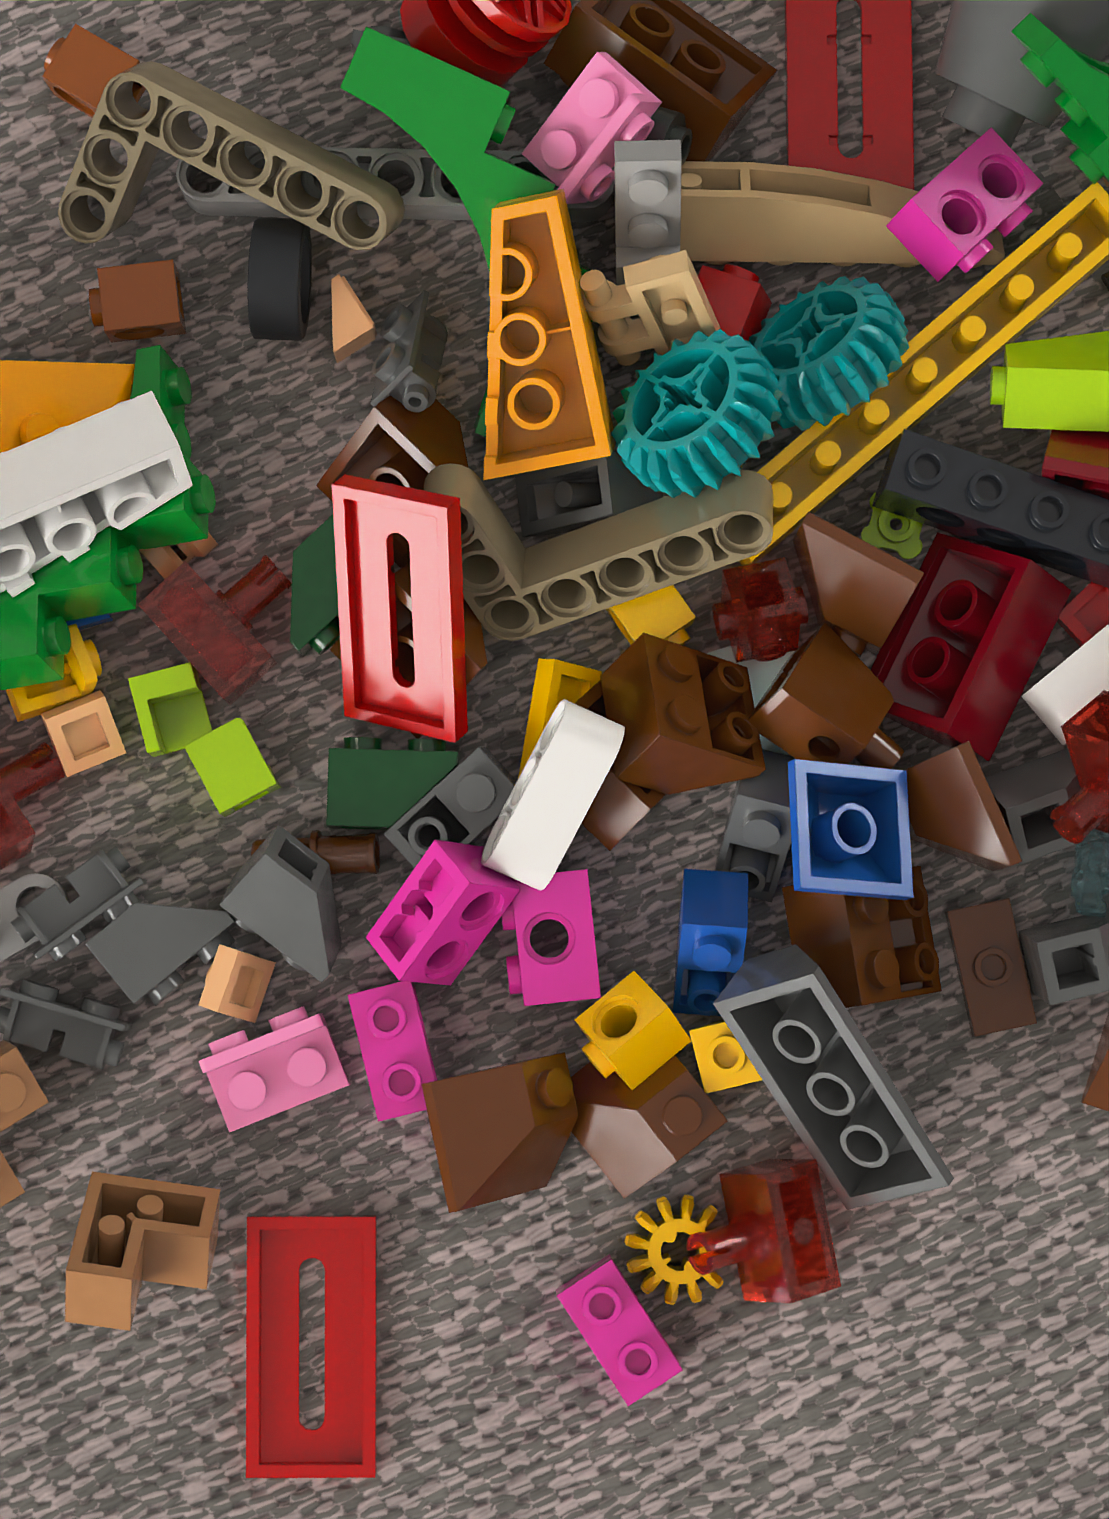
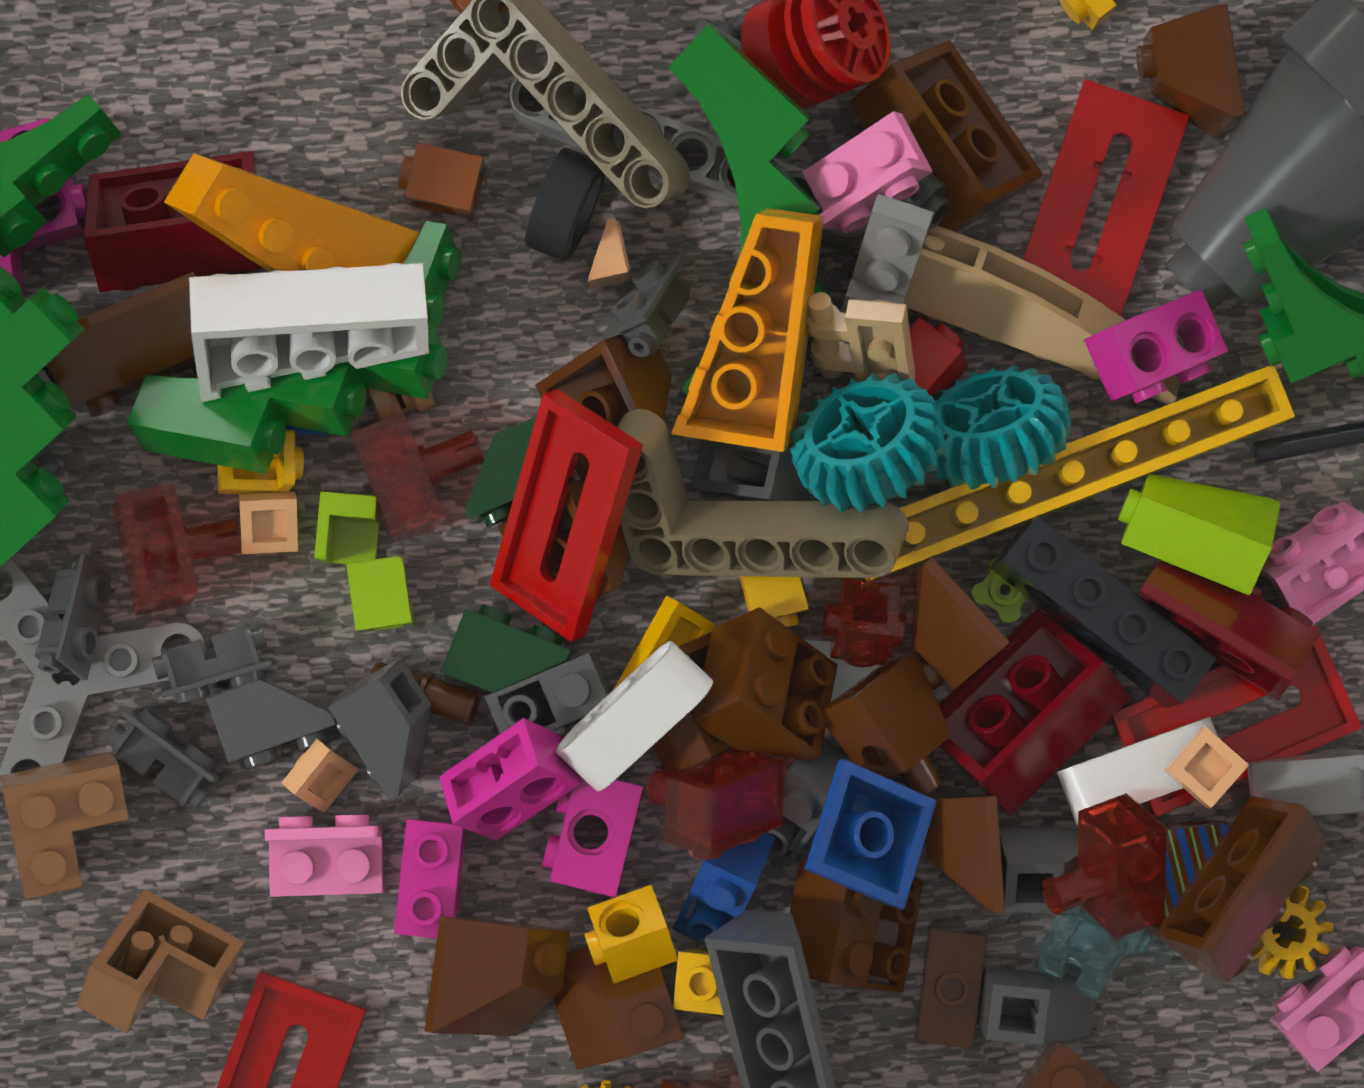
camera: 25 degrees right, 0 degrees up
(676, 853) = (720, 802): none -> clear red brick

